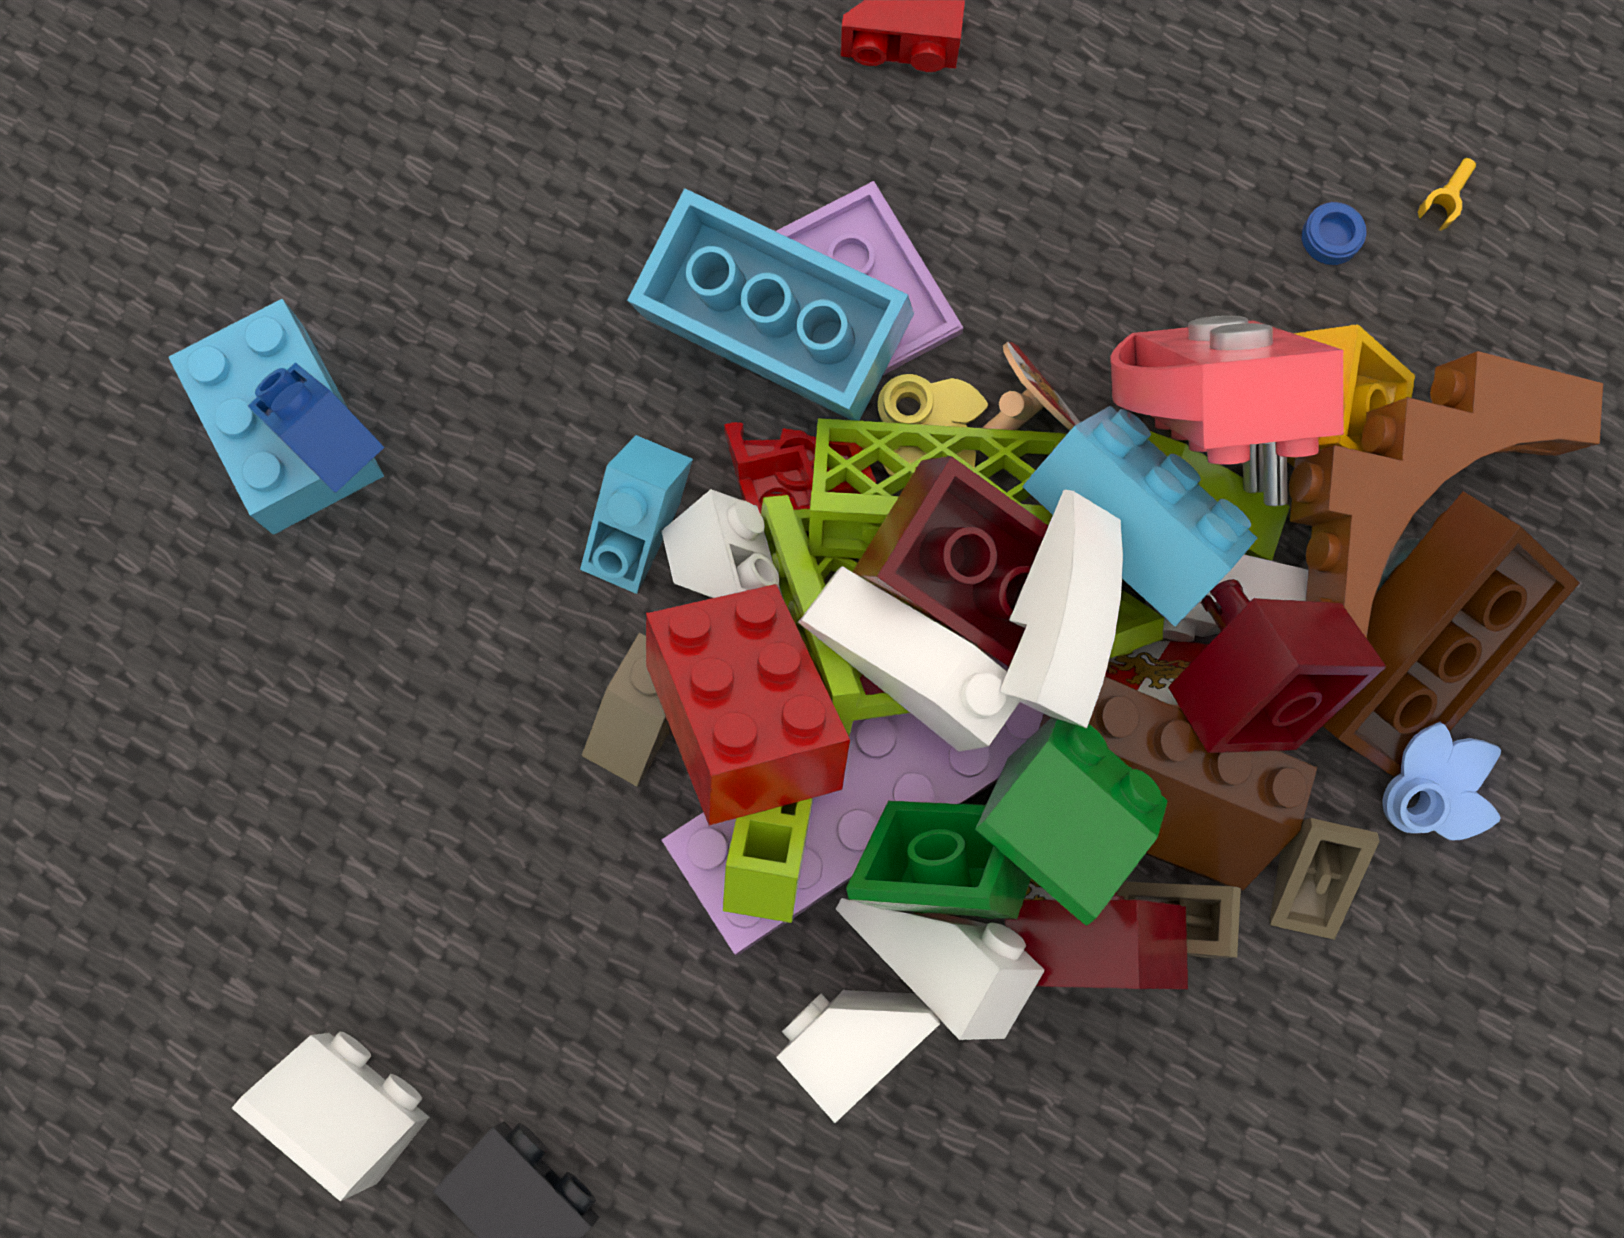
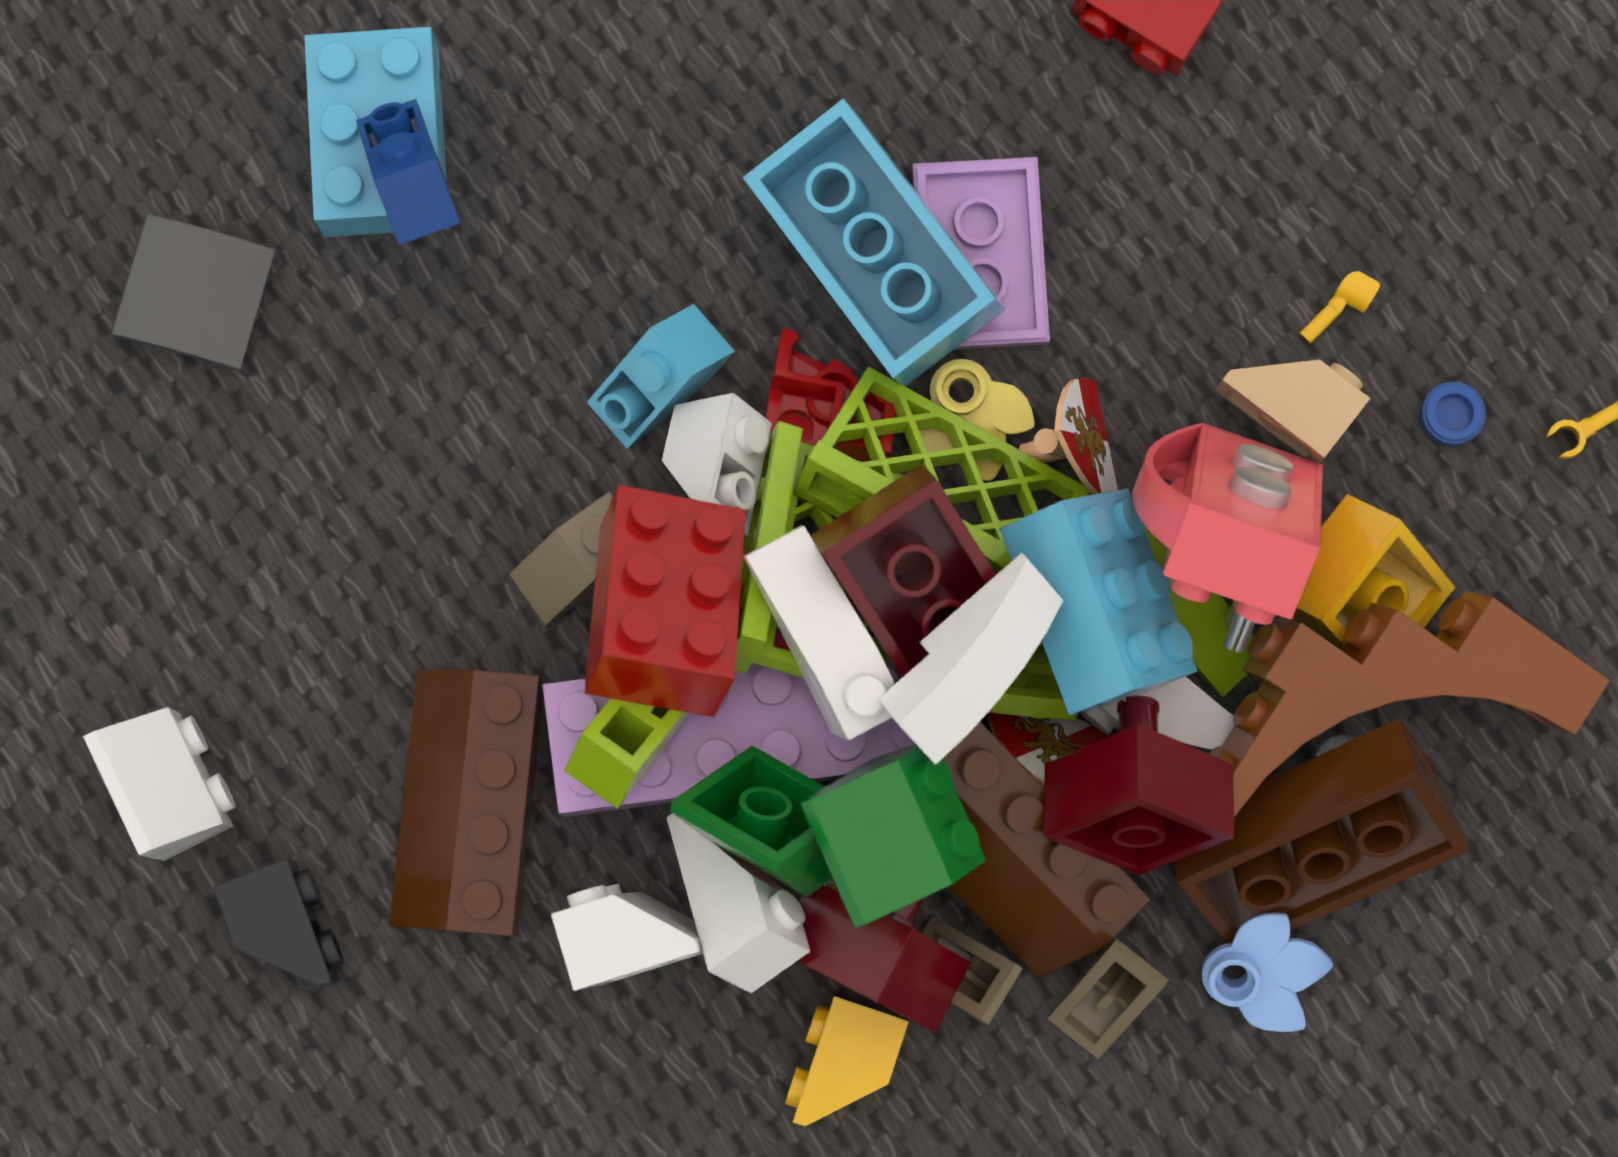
camera: 25 degrees right, 5 degrees up
(169, 637) = (192, 292): none -> dark grey slope
(642, 987) = (467, 802): none -> reddish brown slope
(1117, 1055) = (851, 1058): none -> yellow slope
(1199, 169) = (1354, 290): none -> yellow hand
(1203, 278) = (1298, 402): none -> tan slope

